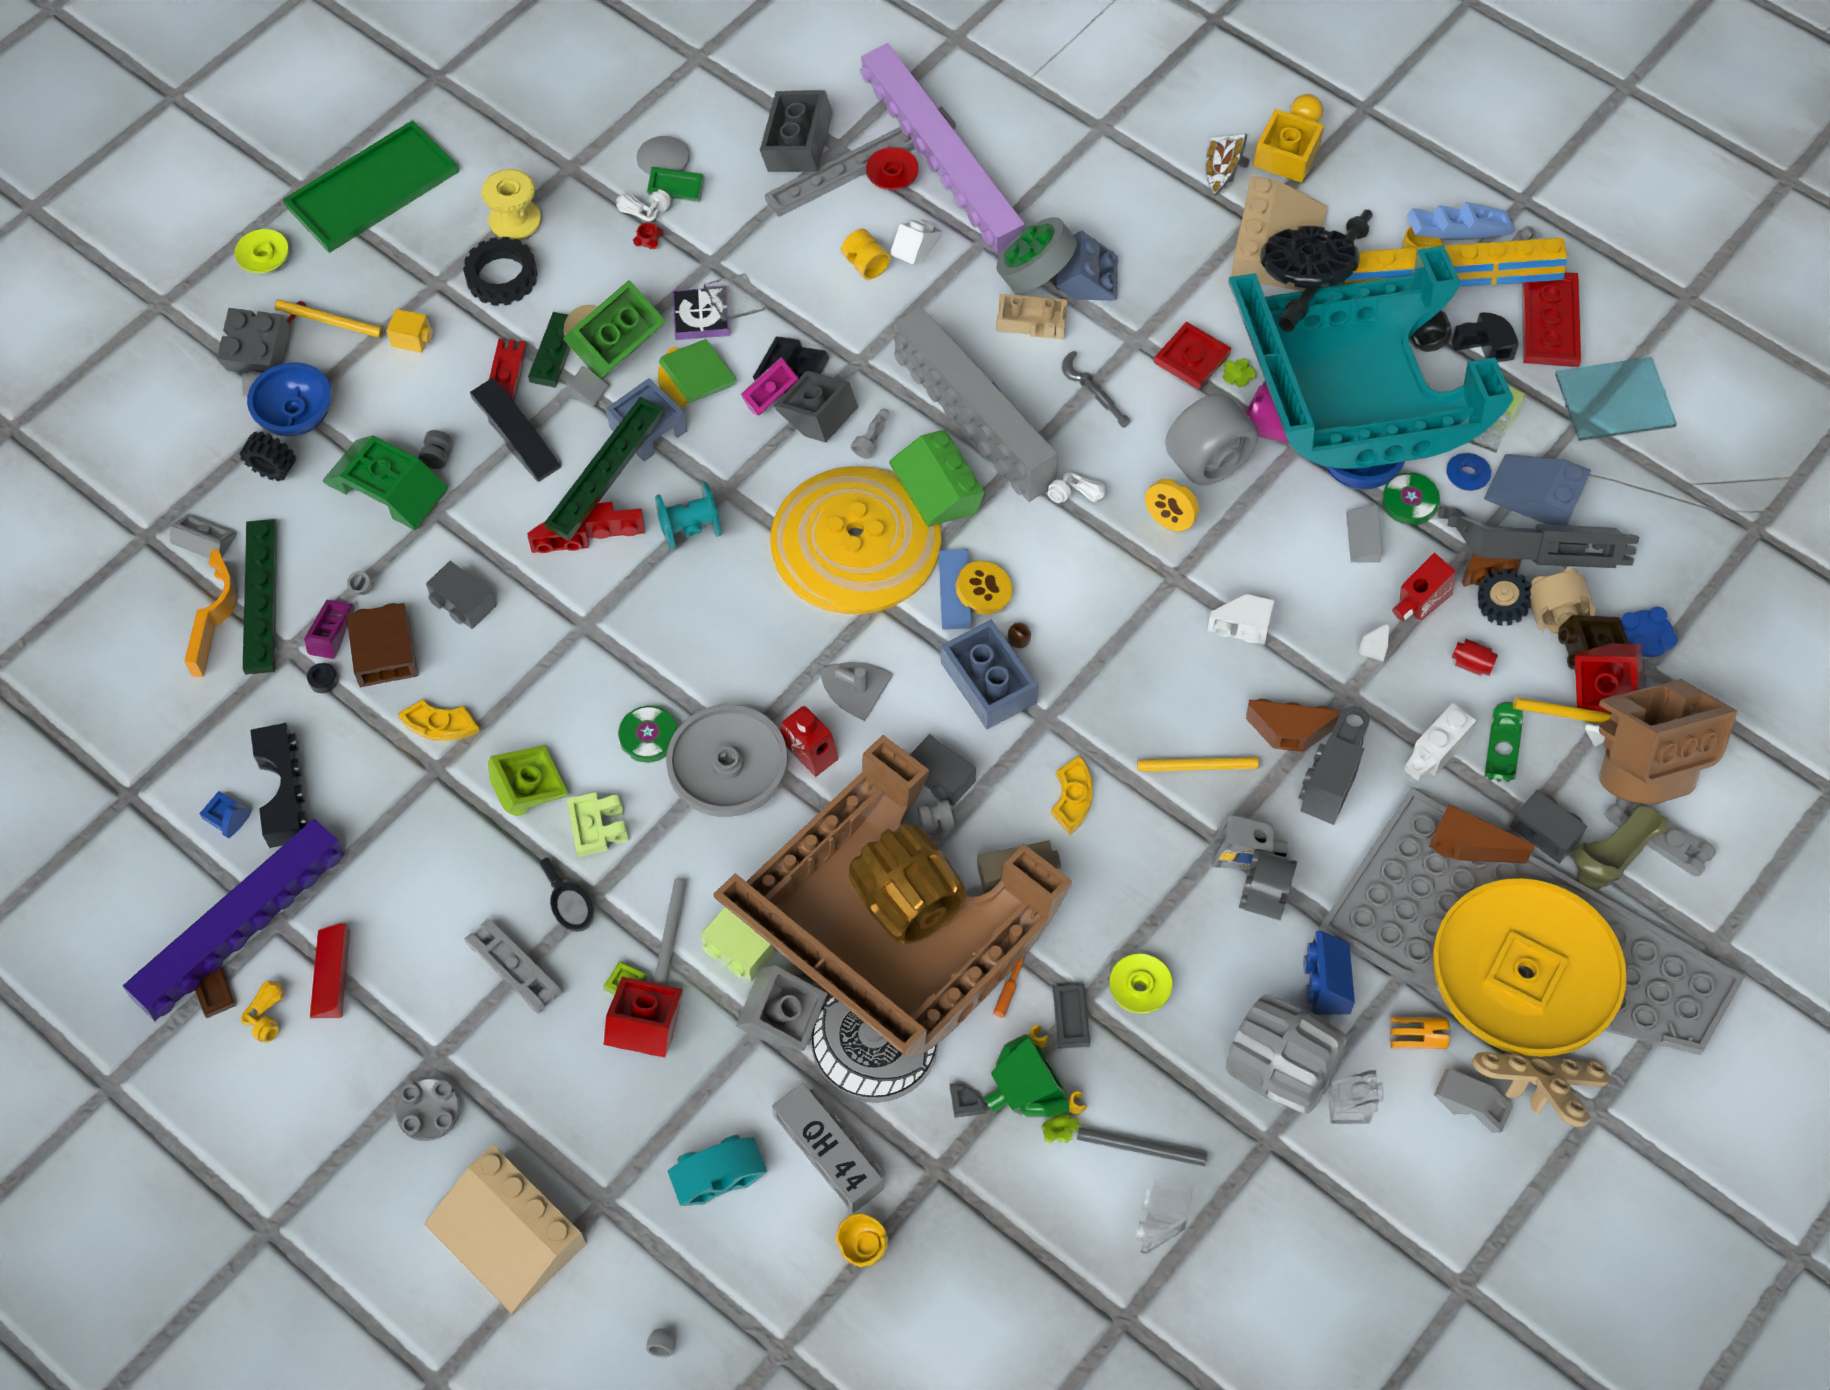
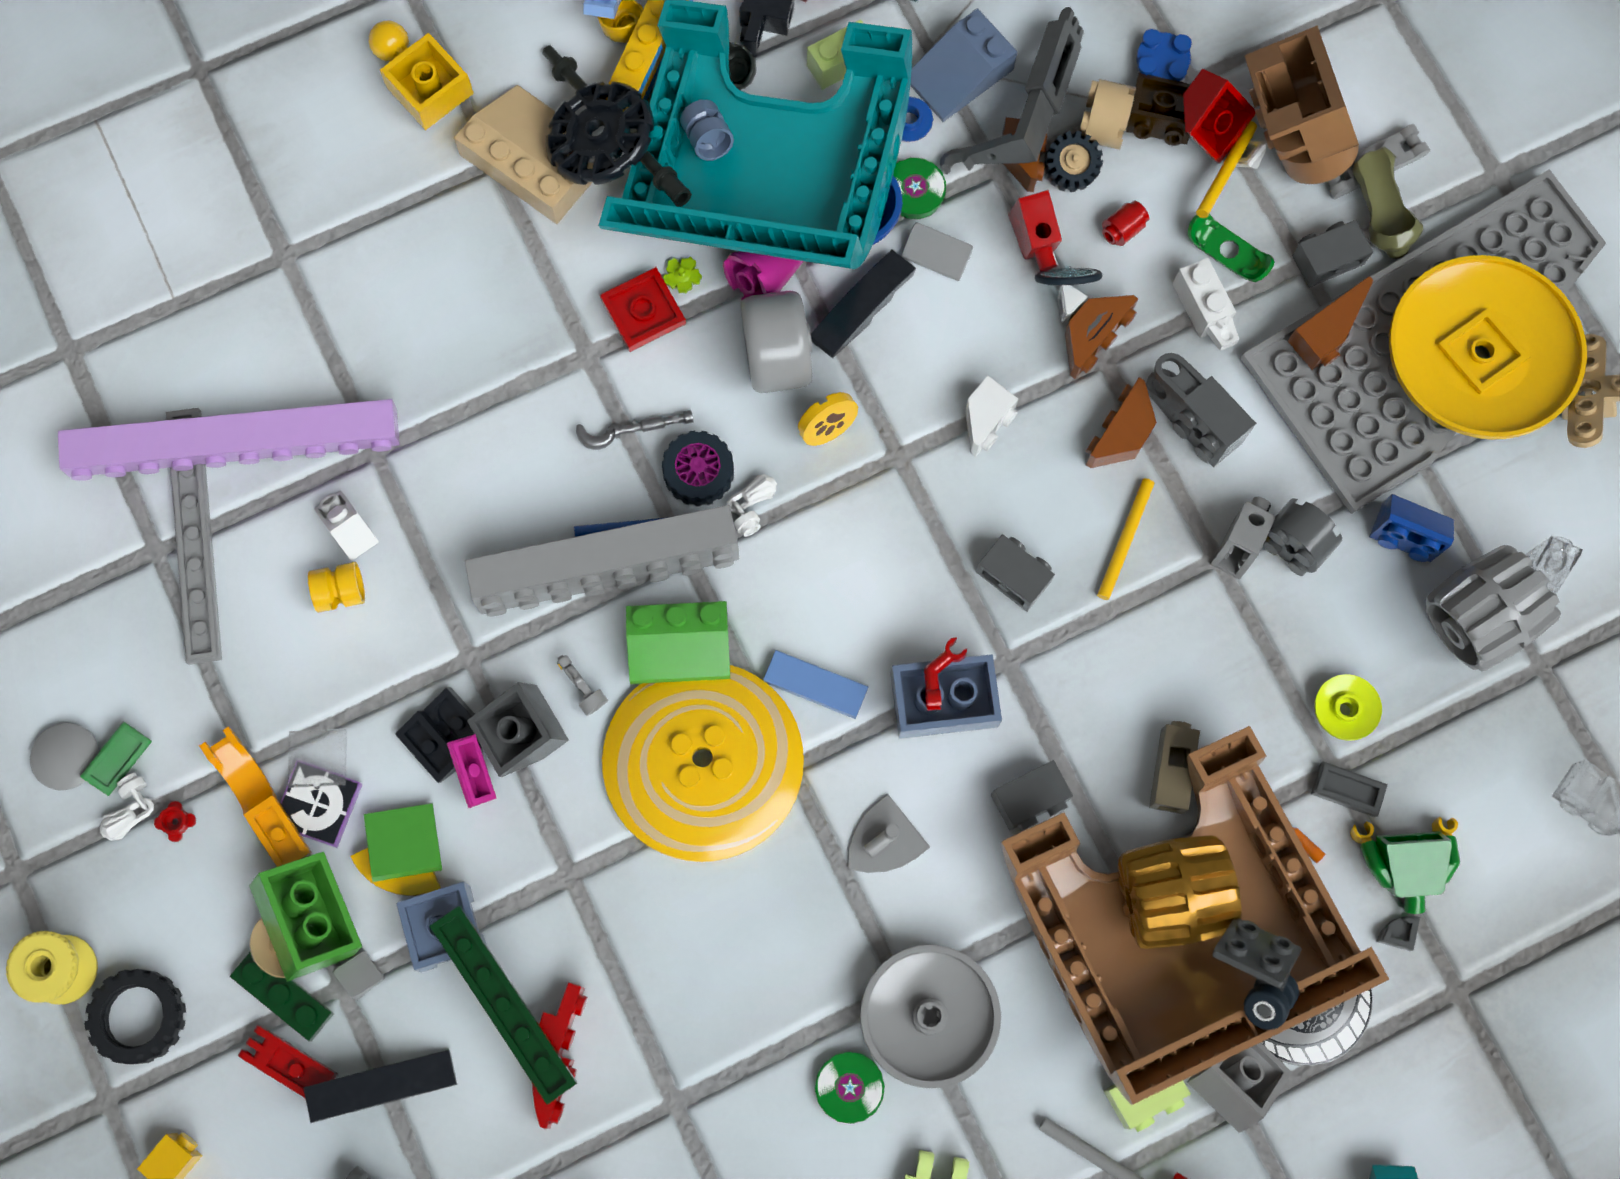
camera: 70 degrees left, 15 degrees up
(688, 519) = (608, 933): teal hose -> none
(697, 267) = (257, 799): none -> light orange piece
(796, 131) = (121, 588): dark grey brick -> none
(806, 735) = (938, 919): red torso -> none
(828, 1147) = (1406, 1092): light grey brick -> none
(862, 1240) = (1518, 1099): yellow hair -> none
(875, 935) = (1268, 960): none -> dark grey plate
(892, 168) = (219, 495): red dish -> none
(935, 817) = (1083, 823): light grey wheel -> none
(980, 652) = (931, 672): none -> red arm
(983, 587) = (832, 654): yellow tile -> none
(1017, 638) = (904, 649): reddish brown hinge -> none
(1032, 316) = (508, 446): tan piece -> none
(1037, 255) = (445, 405): light grey wheel -> none
(1060, 1128) = (1471, 854): lime plant -> none
(1075, 796) = (1109, 672): yellow tile -> none
(1085, 441) = (698, 468): none -> black wheel
(1090, 271) = (478, 362): sand blue slope -> none
(1121, 689) = (1015, 571): none -> dark grey brick
(1142, 1146) = (1508, 785): dark grey bar -> none
(1223, 158) = (409, 154): shield -> none
(1284, 494) = (862, 303): none -> black slope
(1359, 326) = (706, 130): none -> sand blue wheel
(1365, 669) = (1095, 329): none -> dark orange slope
(1397, 628) = (1068, 276): none -> wheel
(1428, 1039) = (1494, 476): light orange arm -> none
(1470, 1096) = (1577, 466): light grey slope -> none

